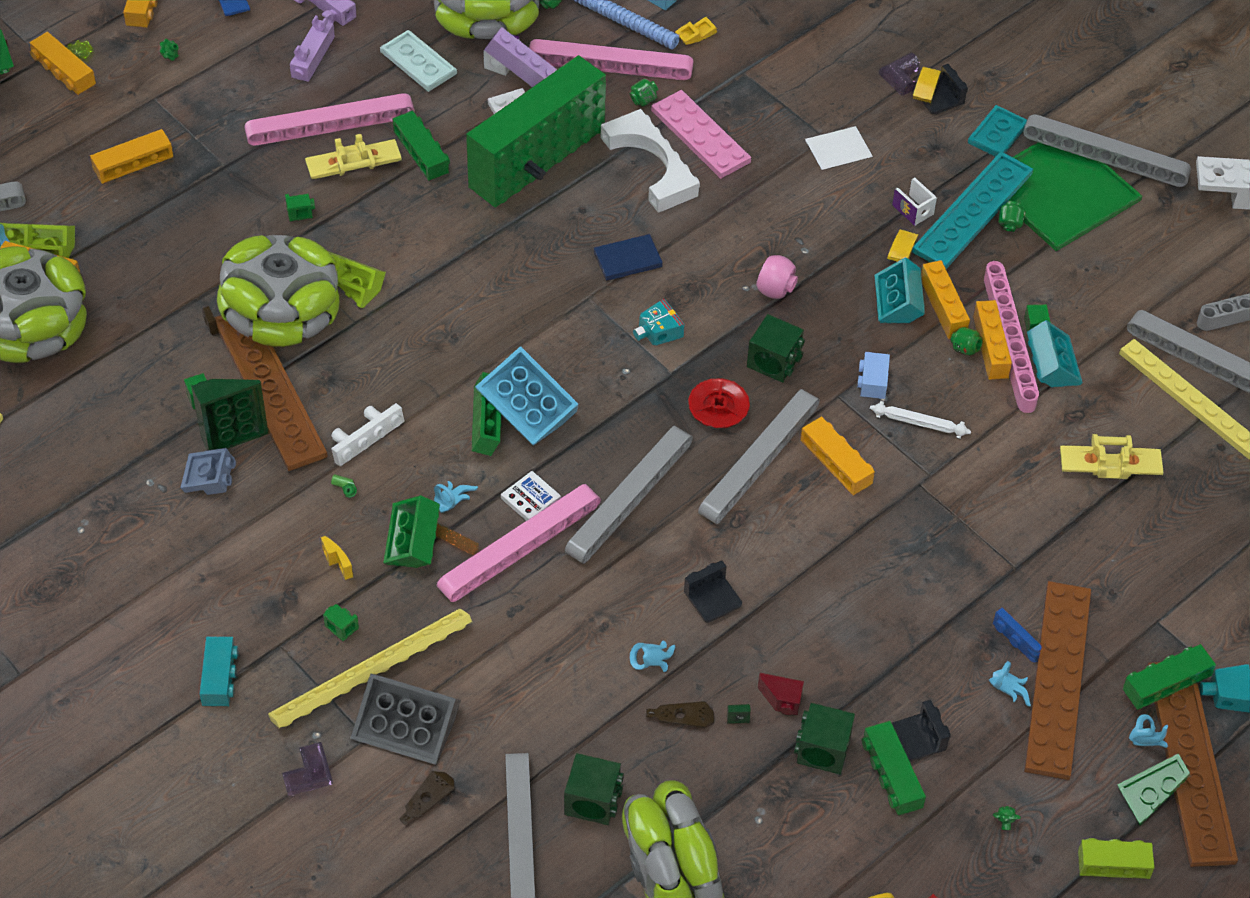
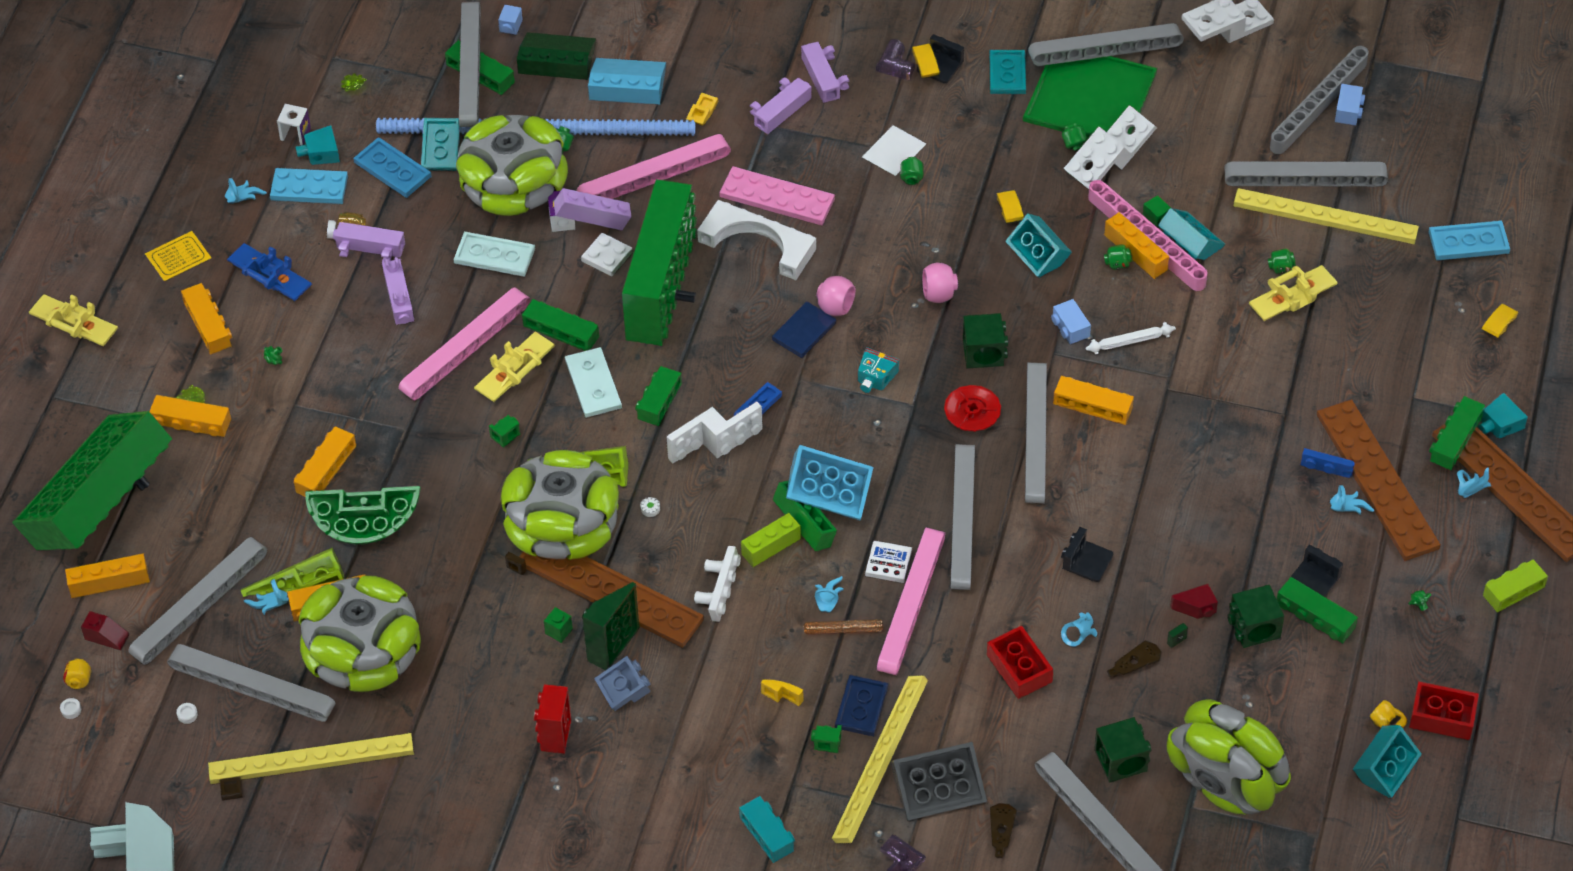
camera: 30 degrees left, 0 degrees up
(115, 466) = (553, 718): none -> red brick
(121, 213) = (362, 515): none -> green brick
(347, 484) = (739, 632): arm -> none
(365, 336) = (650, 507): none -> white tile
(398, 611) = (861, 705): none -> dark blue tile
(408, 206) = (593, 382): none -> light aqua plate
(412, 532) = (826, 639): green slope -> none
(440, 419) = (770, 540): none -> lime brick
(452, 246) = (658, 395): none -> green brick
(473, 306) = (714, 432): none -> white bracket
(531, 298) = (765, 396): none -> blue hinge
(567, 653) = (1019, 662): none -> red brick
(643, 92) = (705, 184): green head -> none
(675, 241) = (836, 295): none -> bright pink wheel
(767, 60) = (782, 106): none -> lavender brick
(825, 49) = (821, 72): none -> lavender brick
(836, 171) = (911, 170): none -> green head
(911, 210) = (992, 164): white piece -> none
(944, 297) = (1077, 232): light orange brick -> none
(972, 210) = (1042, 148): teal plate -> none
(1038, 242) = (1111, 147): none -> white bracket
(1123, 424) = (1282, 261): none -> green head
(1152, 787) = (1503, 519): wing -> none

